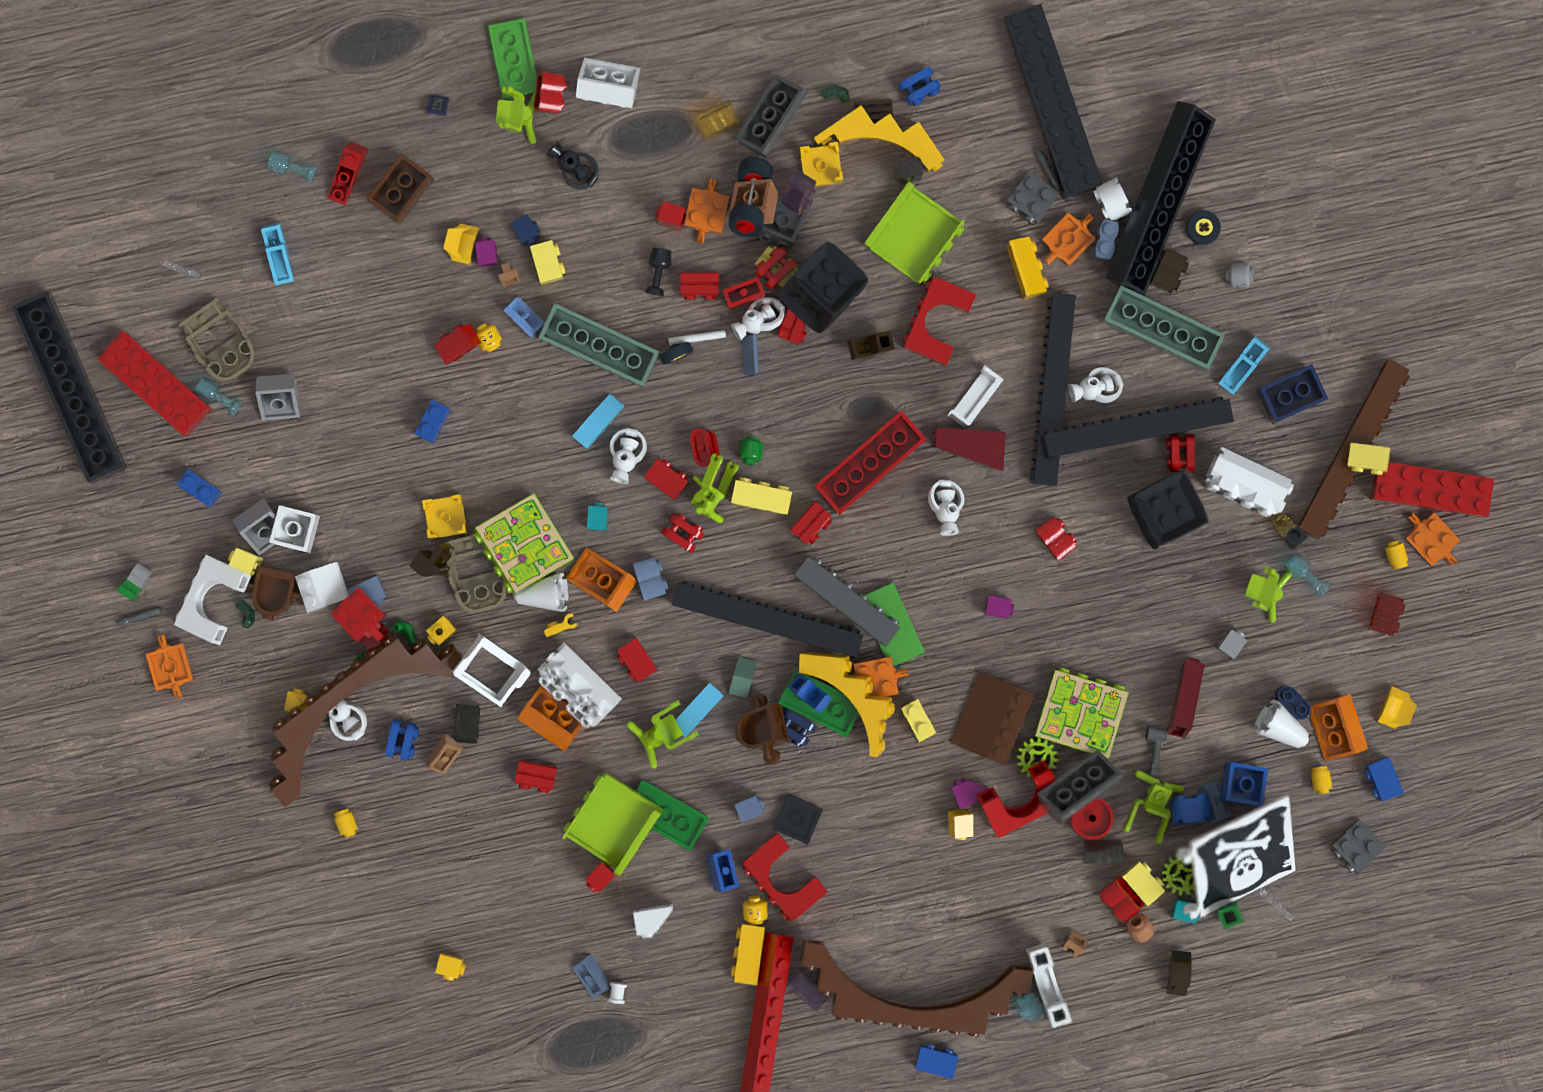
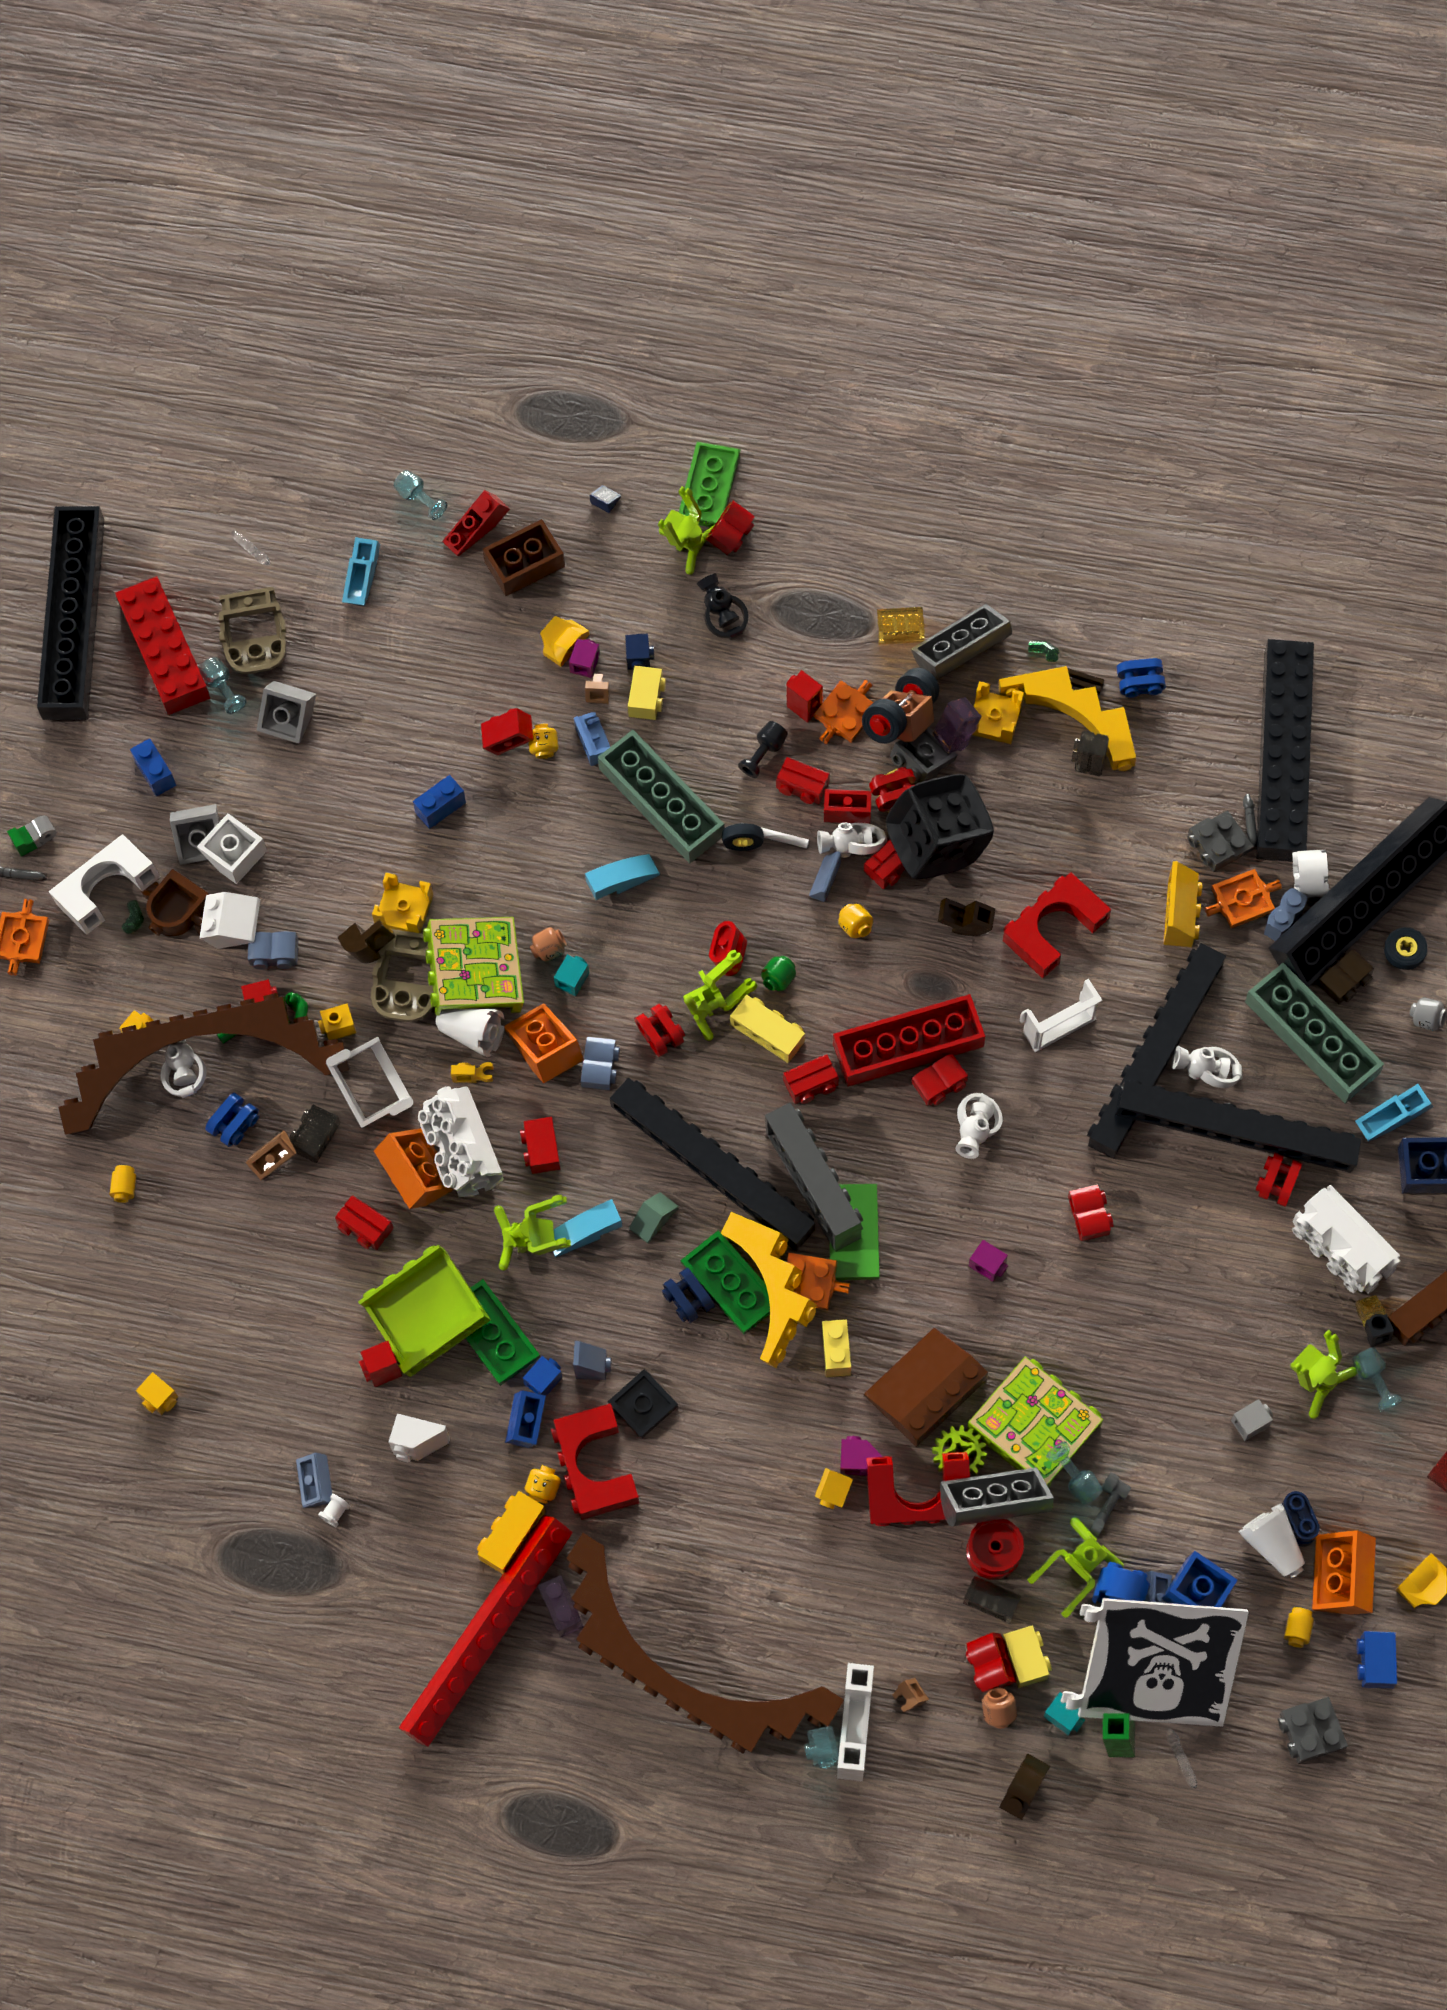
camera: 30 degrees right, 20 degrees down
(244, 561) = (161, 855): light yellow brick -> none
(360, 616) = (254, 959): red hinge -> none
(569, 501) = (548, 944): none -> nougat head
(607, 82) = (797, 544): white slope -> none
(624, 459) = (632, 923): white piece -> none
(666, 479) = (669, 966): red brick -> none
(719, 832) = (543, 1376): none -> blue brick
(763, 728) = (649, 1277): reddish brown piece -> none
(789, 383) = (855, 920): none -> yellow head
(809, 693) = (722, 1258): blue brick -> none
(905, 482) = (939, 1080): none -> red brick
(914, 234) = (1067, 824): lime panel -> none
(936, 1061) = (677, 1761): blue brick -> none
(973, 445) = (1038, 1072): dark red slope -> none
(1132, 743) = (1083, 1483): none -> clear light blue piece
(1168, 509) = (1237, 1226): black piece -> none
(1169, 877) = (1068, 1664): lime gear -> none
(1186, 698) = (1168, 1459): dark red slope -> none

